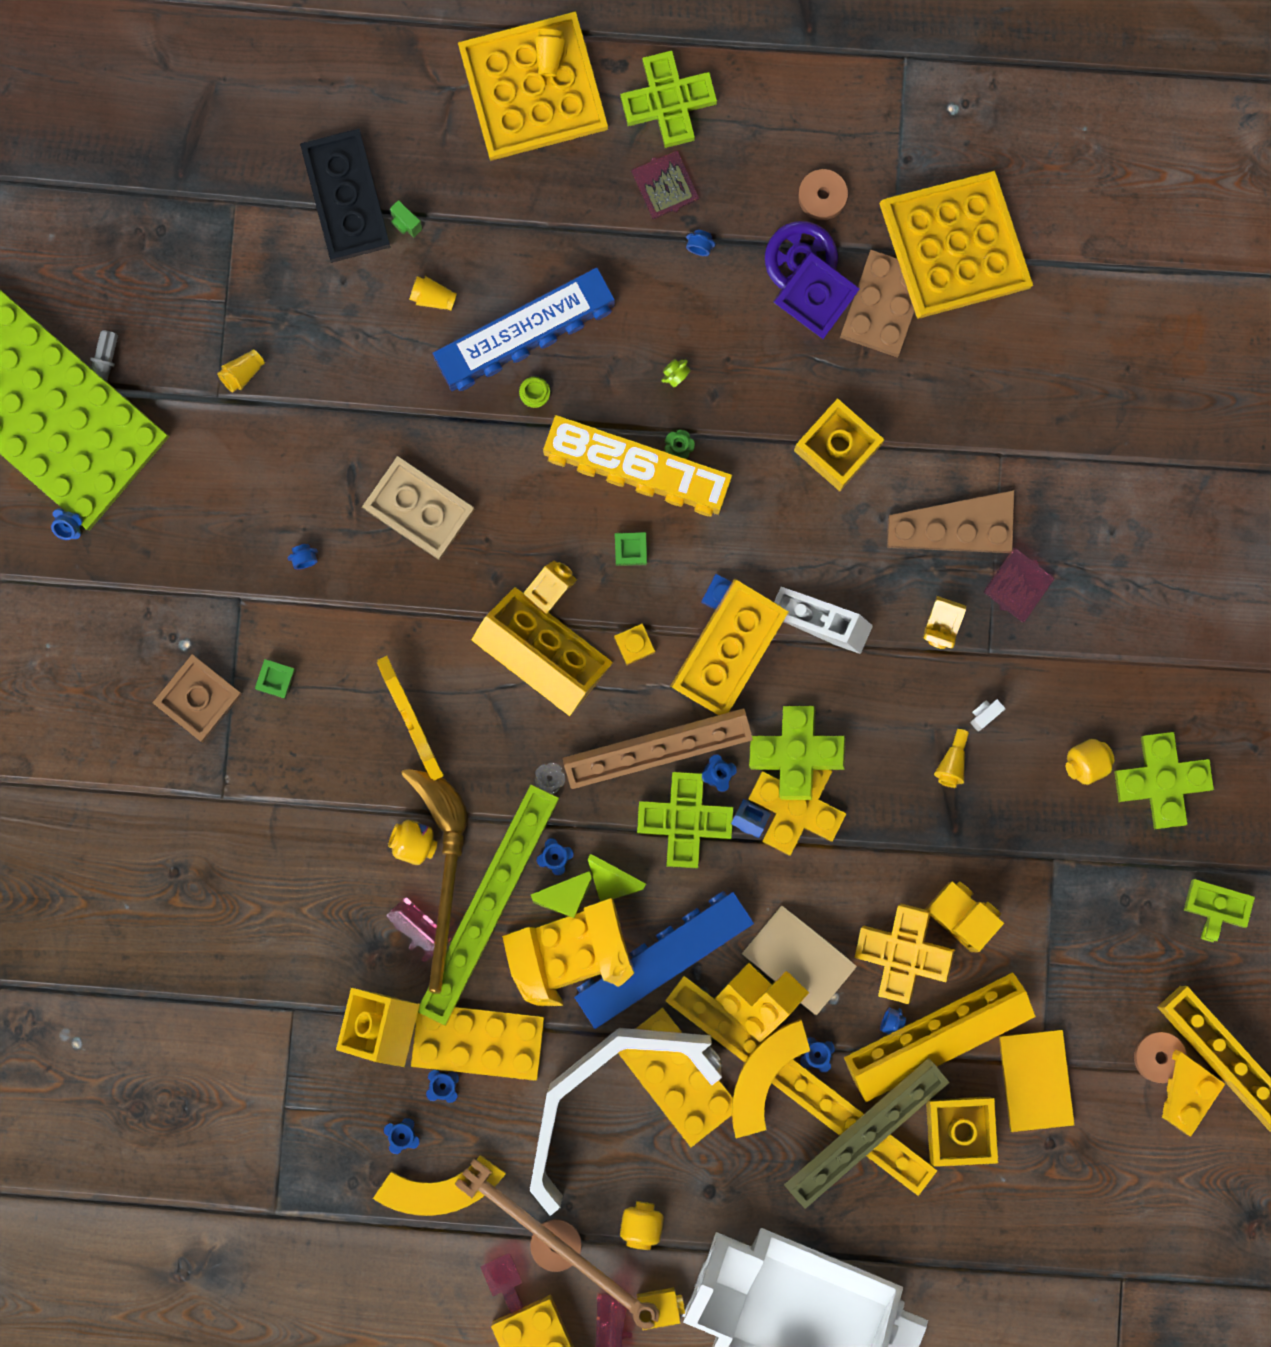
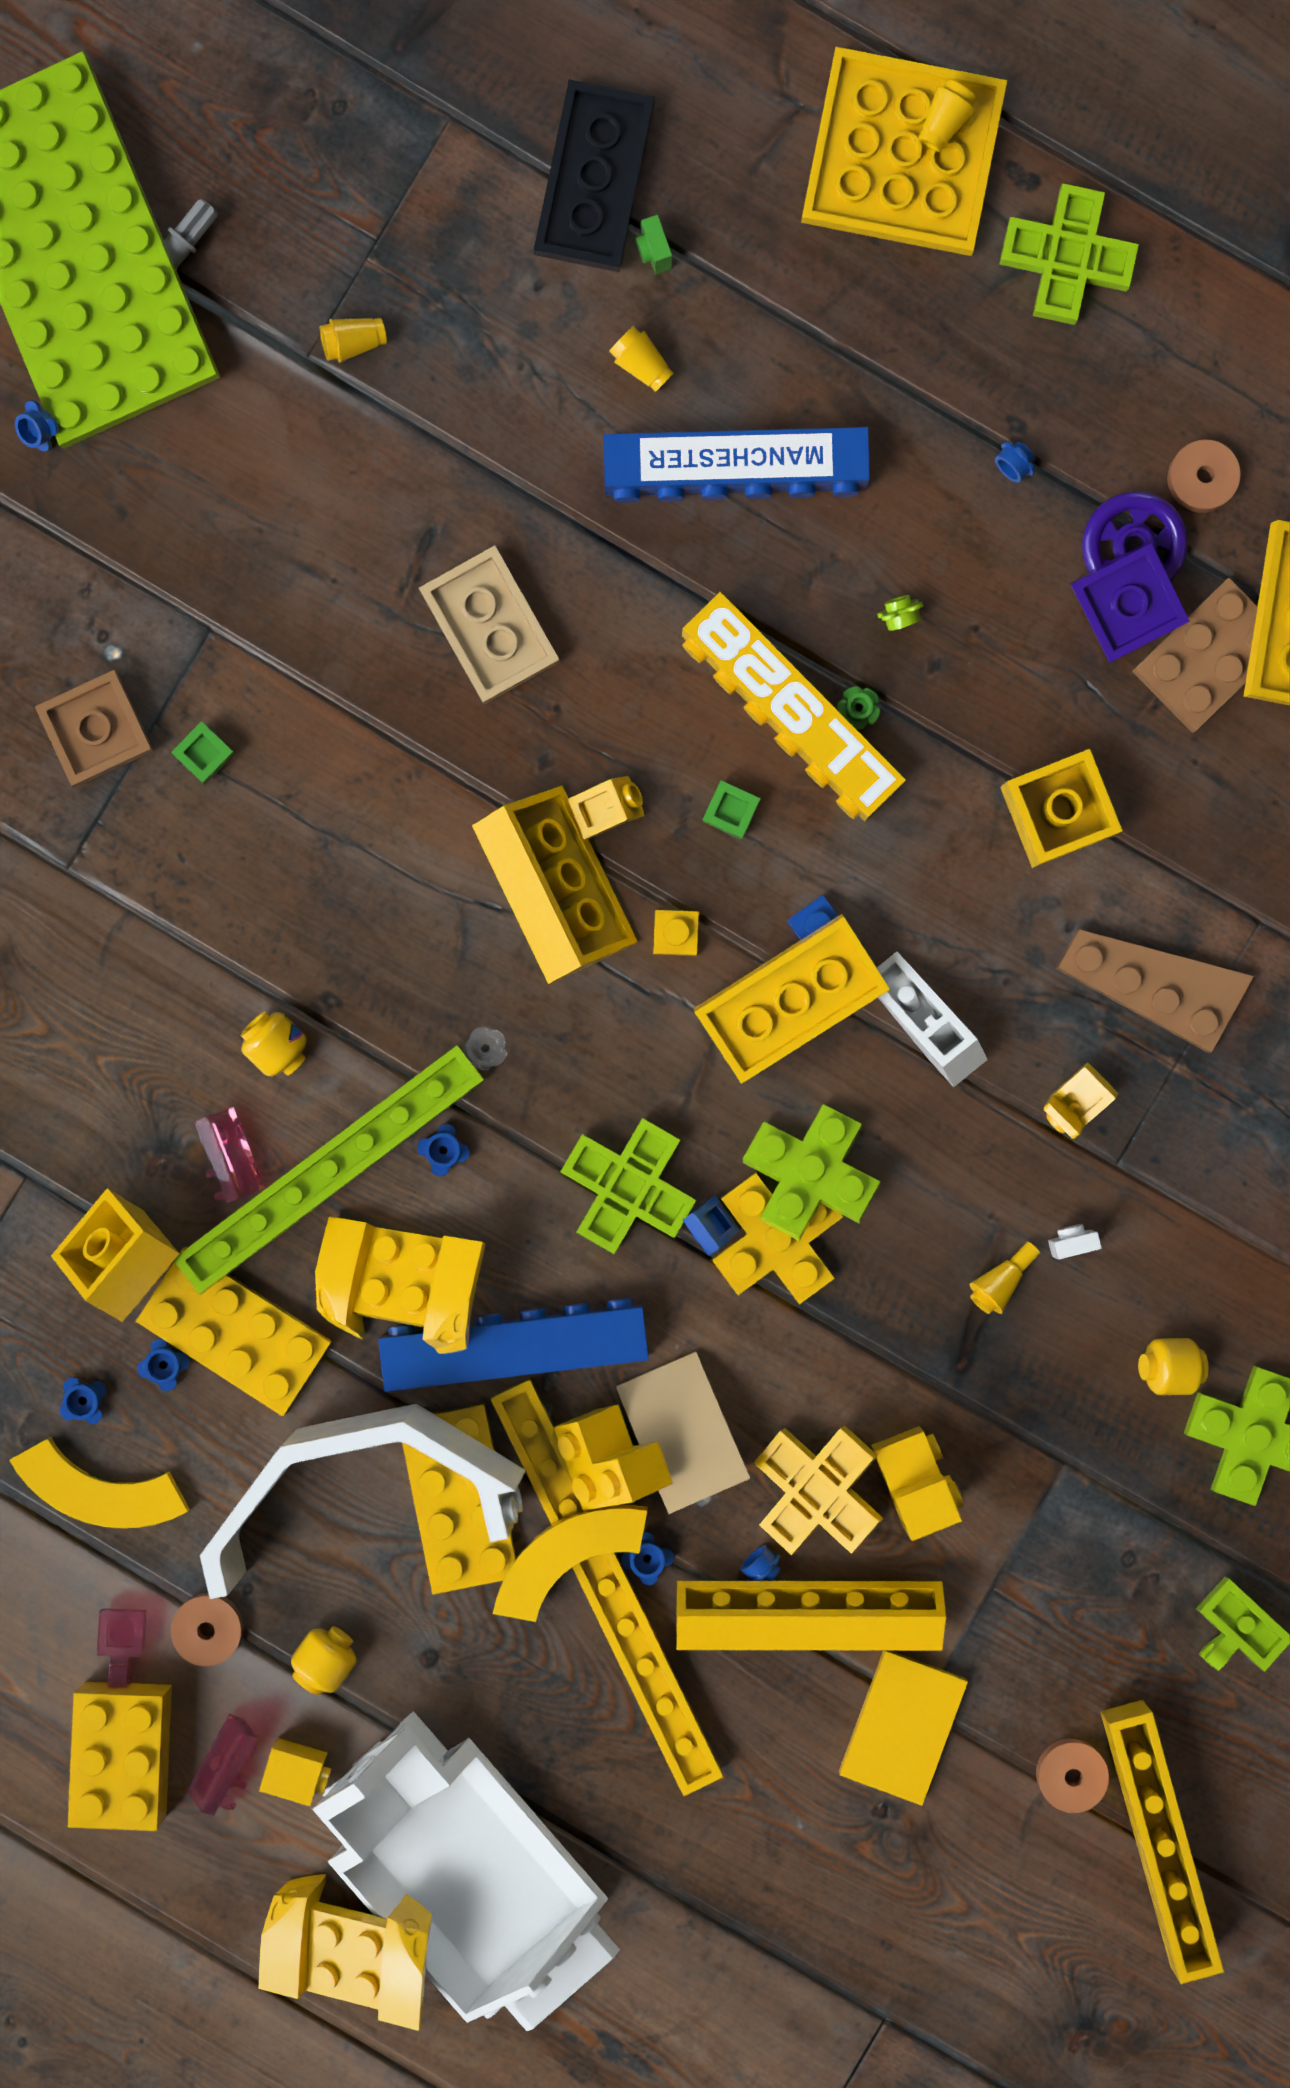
camera: 30 degrees right, 5 degrees up
(303, 556) = (314, 615): blue plate -> none
(410, 718) = (348, 887): yellow tile -> none
(451, 817) = (338, 1036): pearl gold piece -> none
(480, 1183) = (149, 1509): medium nougat hinge -> none
(534, 392) = (709, 549): lime plate -> none
(564, 896) = (430, 1207): lime slope -> none
(612, 881) = (499, 1217): lime slope -> none
(657, 748) = (638, 1079): medium nougat plate -> none
(665, 185) = (1008, 364): piece -> none
(710, 775) = (688, 1145): blue plate -> none
(866, 1133) = (657, 1690): olive plate -> none
(962, 1131) = (778, 1746): yellow brick -> none
(1018, 585) = (1197, 1099): clear pink piece -> none
(1189, 1094) = (1085, 1840): yellow wing -> none

